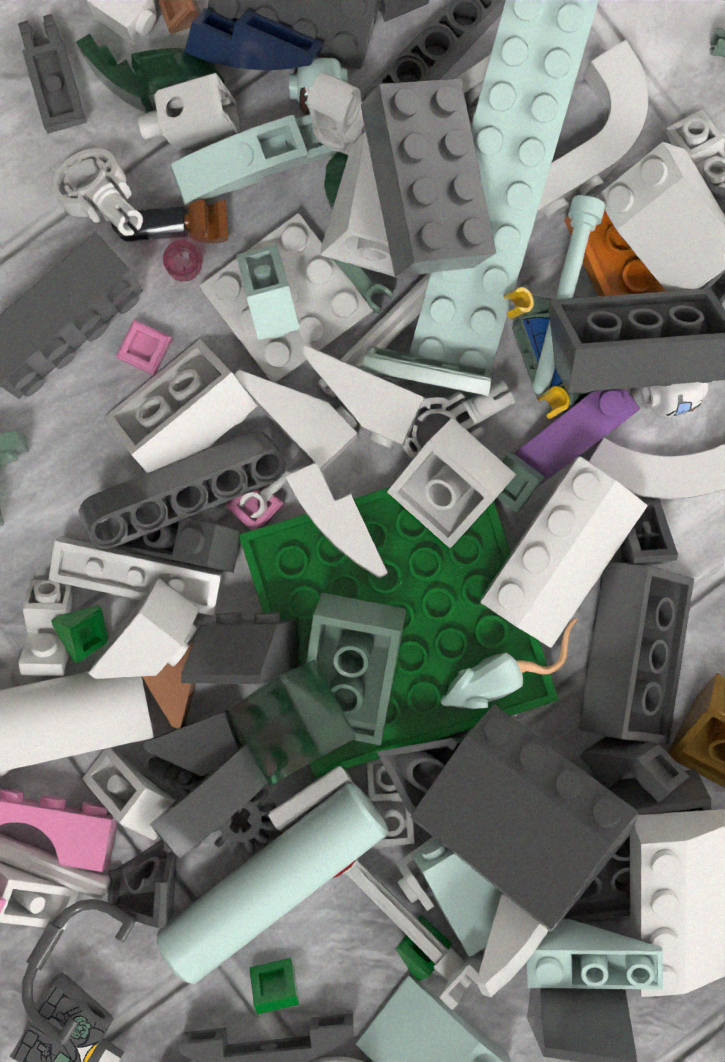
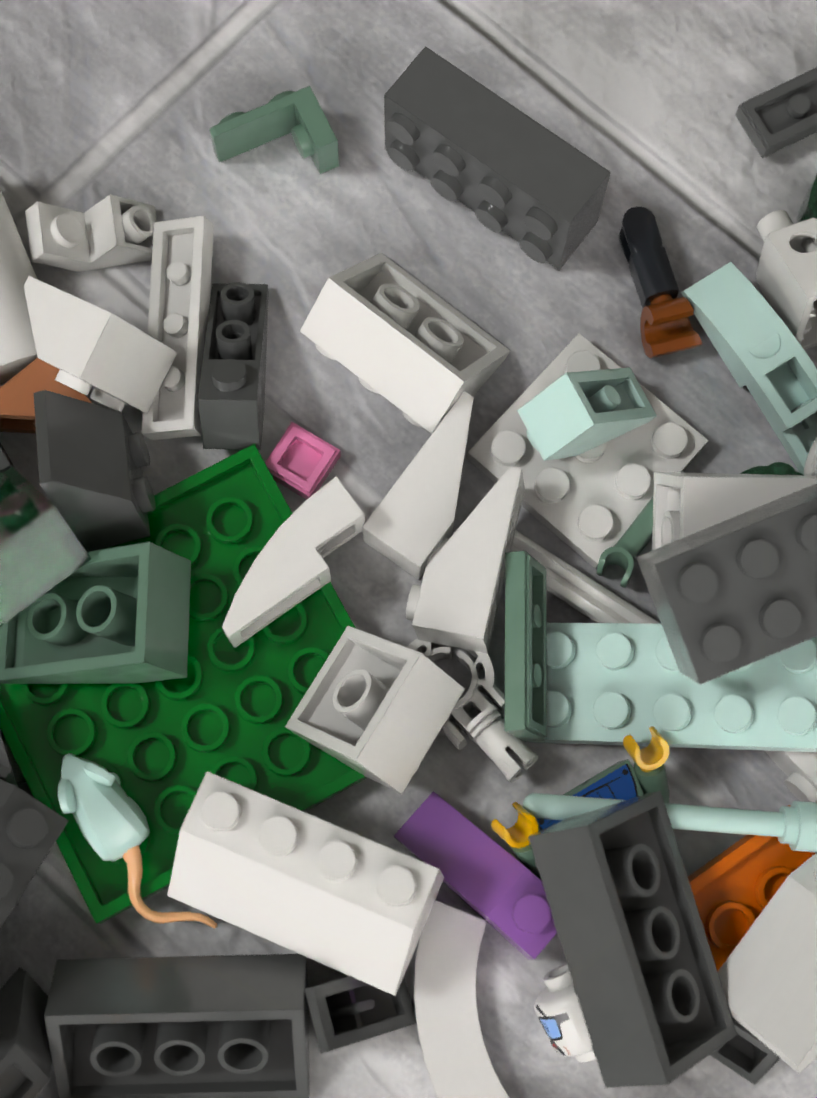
camera: 80 degrees right, 10 degrees down
(81, 631) = (93, 272): green slope -> none
(99, 194) = (669, 184): white pin -> none
(144, 347) = (482, 284): bright pink tile -> none
(163, 487) = (275, 343): dark grey beam -> none
(170, 265) = (619, 320): clear pink bush -> none
(264, 495) = (308, 463): white hand -> none
(522, 485) = (397, 812): sand green plate -> none

